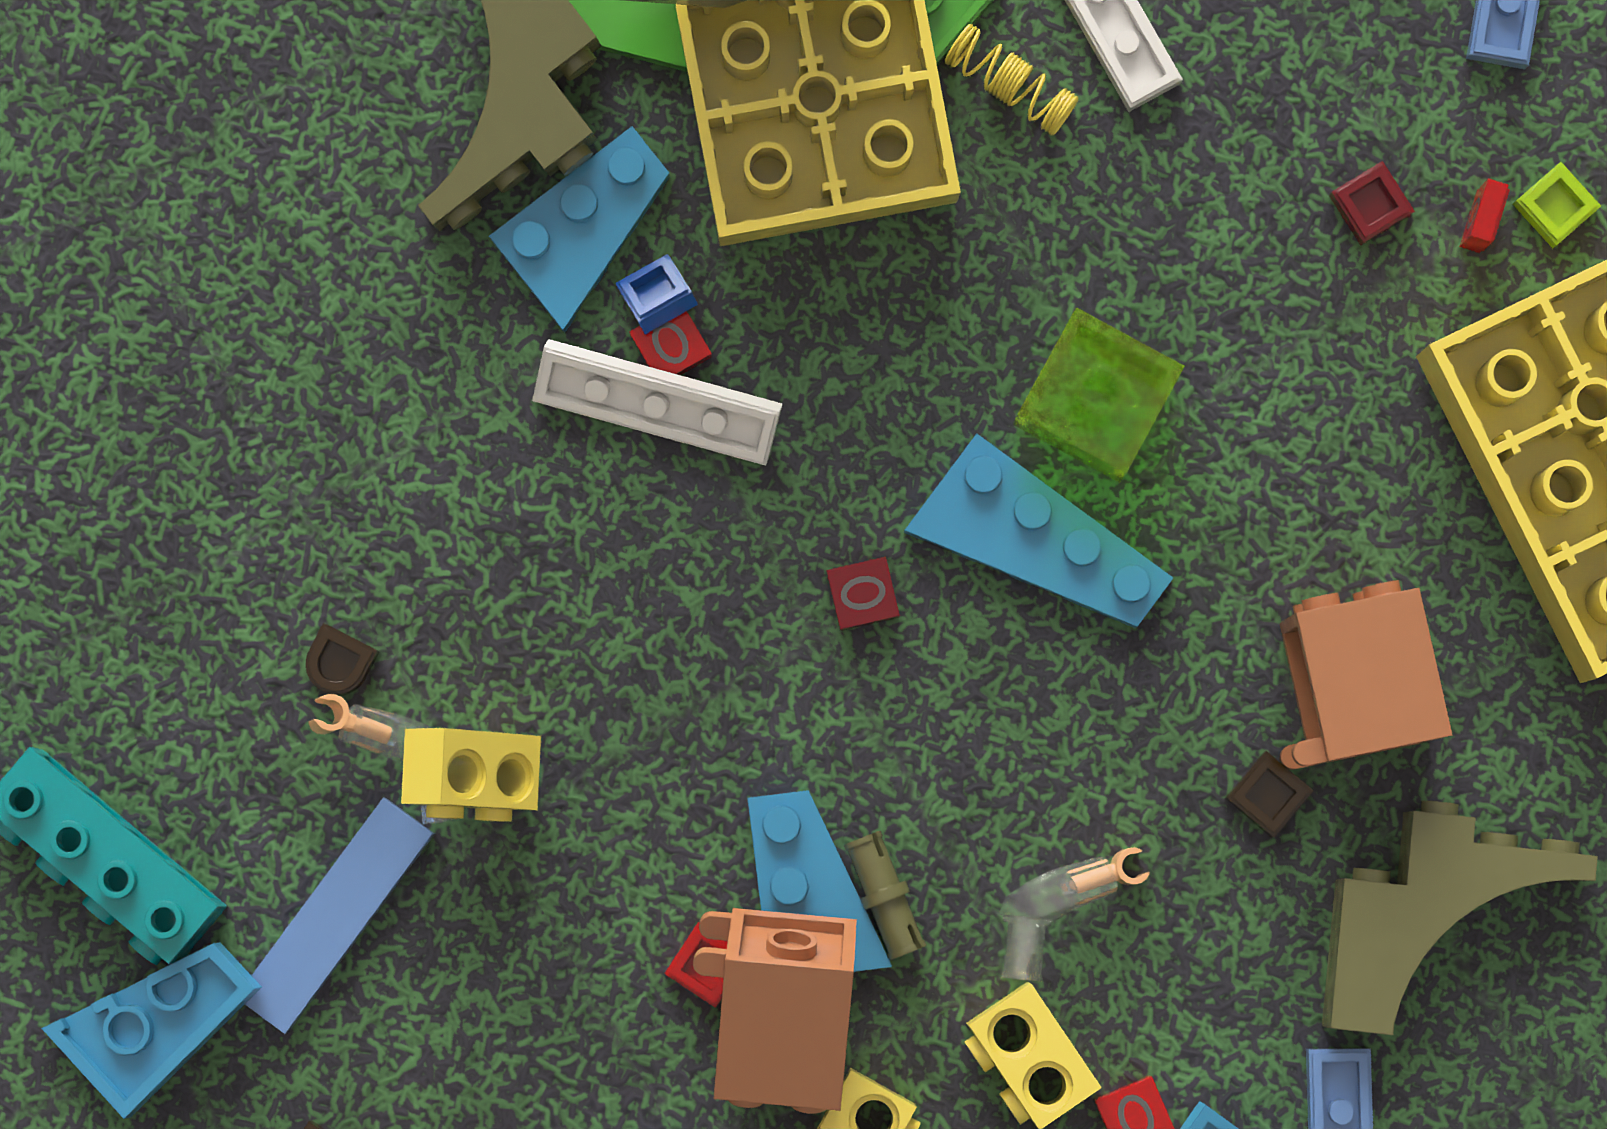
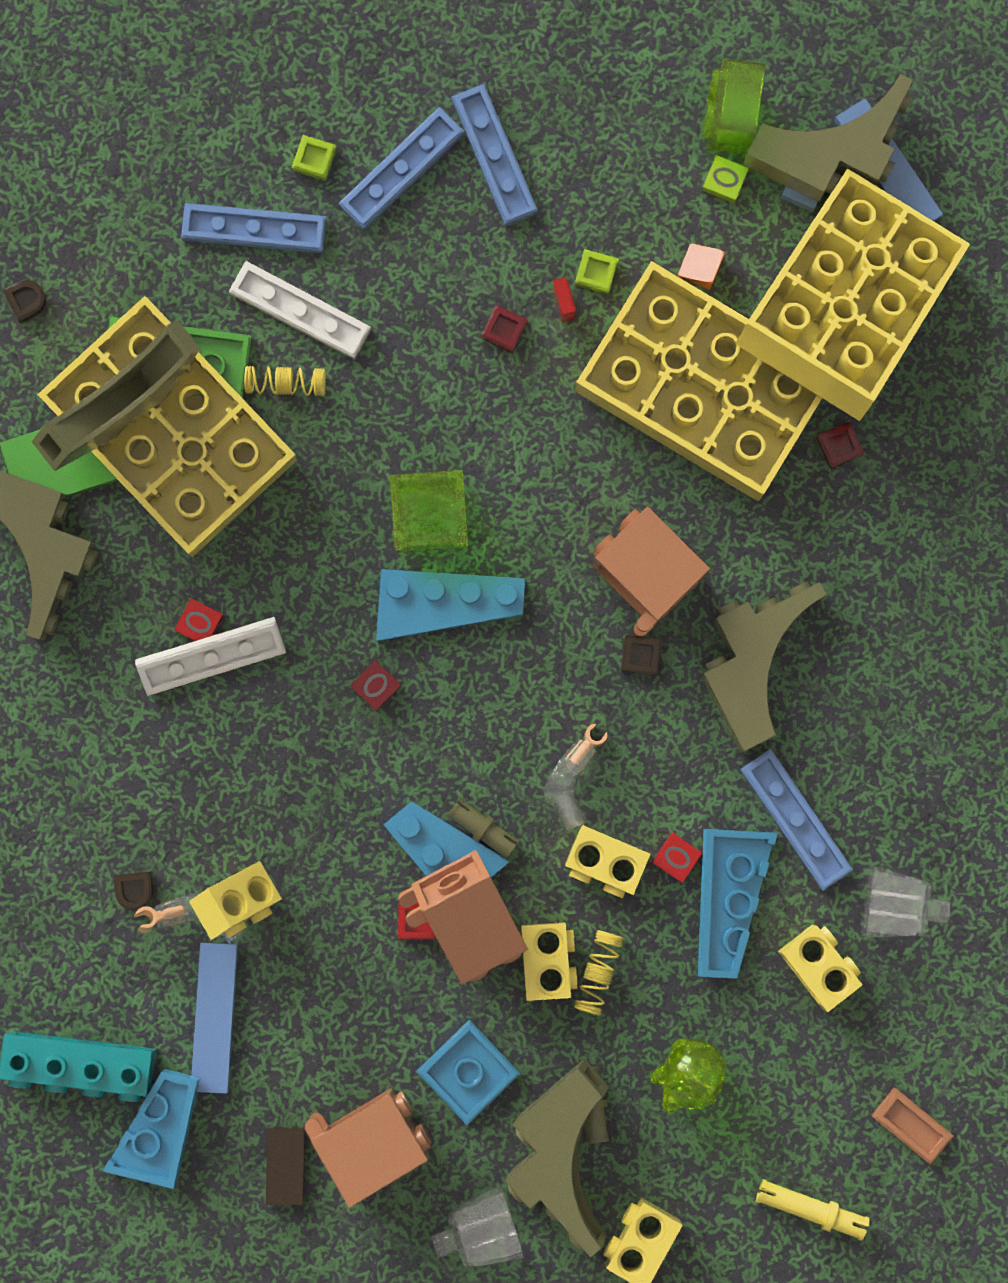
camera: 35 degrees left, 0 degrees up
(580, 224) = (114, 591): dark azure wing -> none
(656, 293) = (175, 602): blue tile -> none

